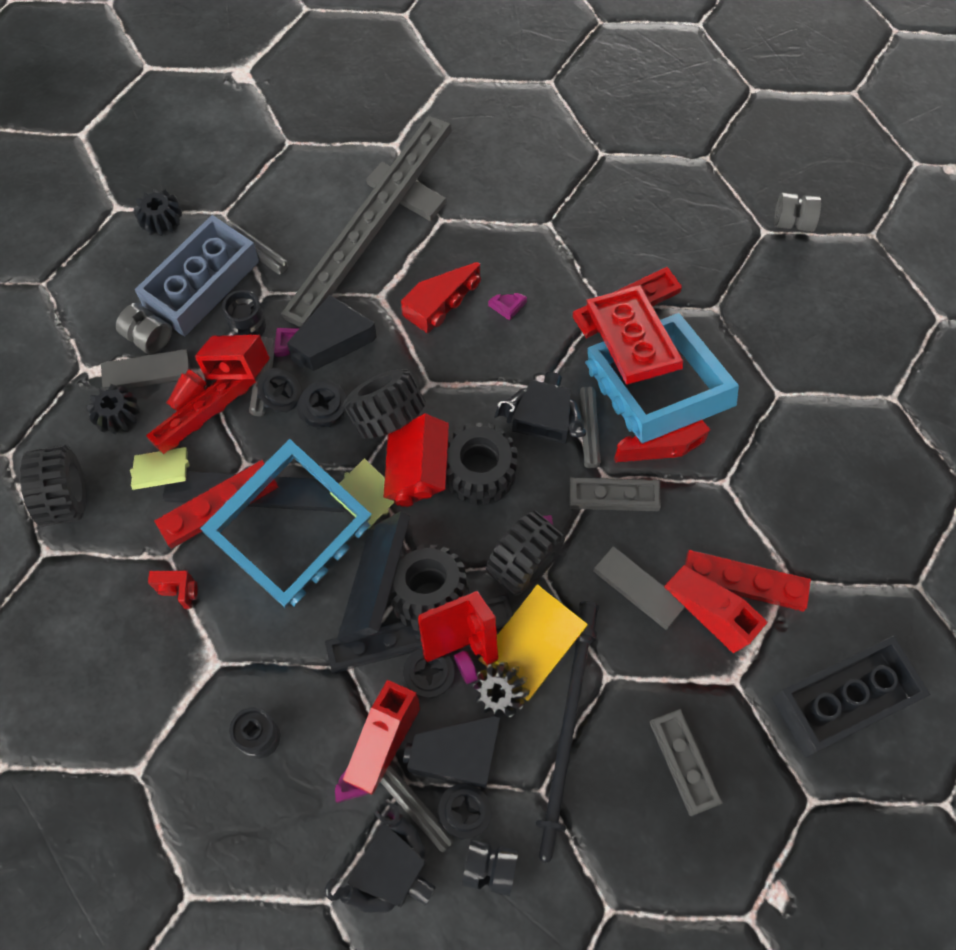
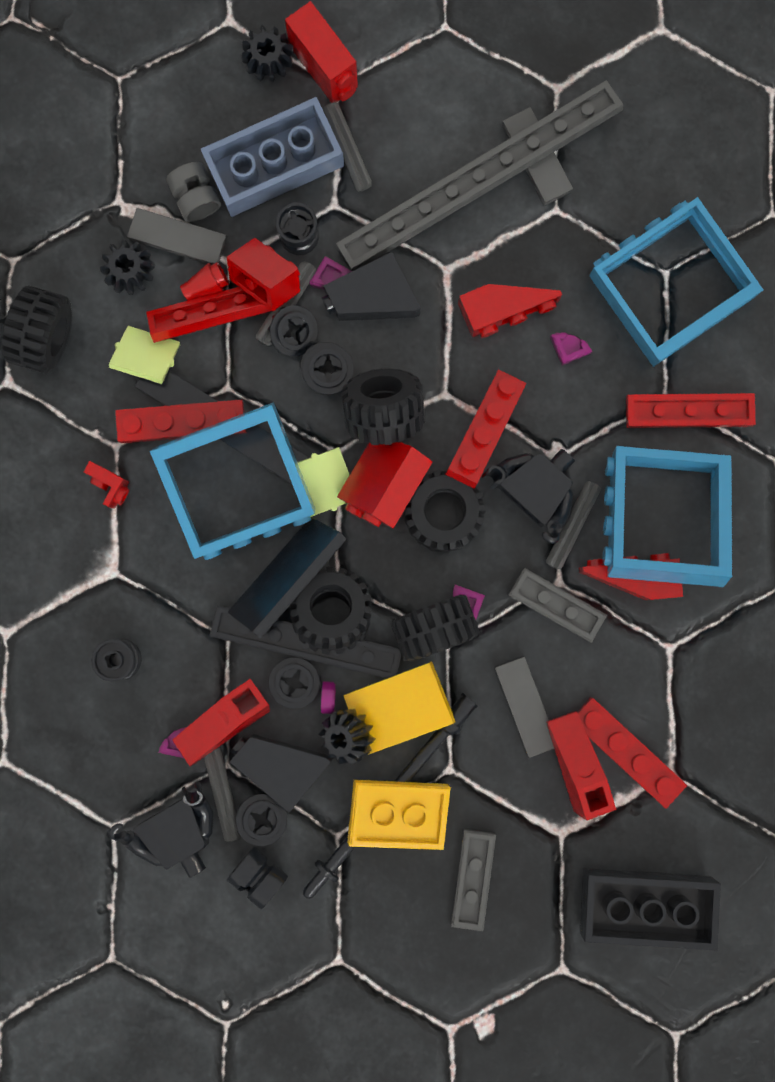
camera: 30 degrees right, 20 degrees up
(201, 187) = (322, 53): none -> red brick
(458, 625) = (336, 662): red bracket -> none
(477, 385) = (486, 429): none -> red plate
(576, 185) = (718, 245): none -> dark azure window
(585, 736) = (398, 814): none -> yellow tile
(634, 335) = (667, 461): red plate -> none

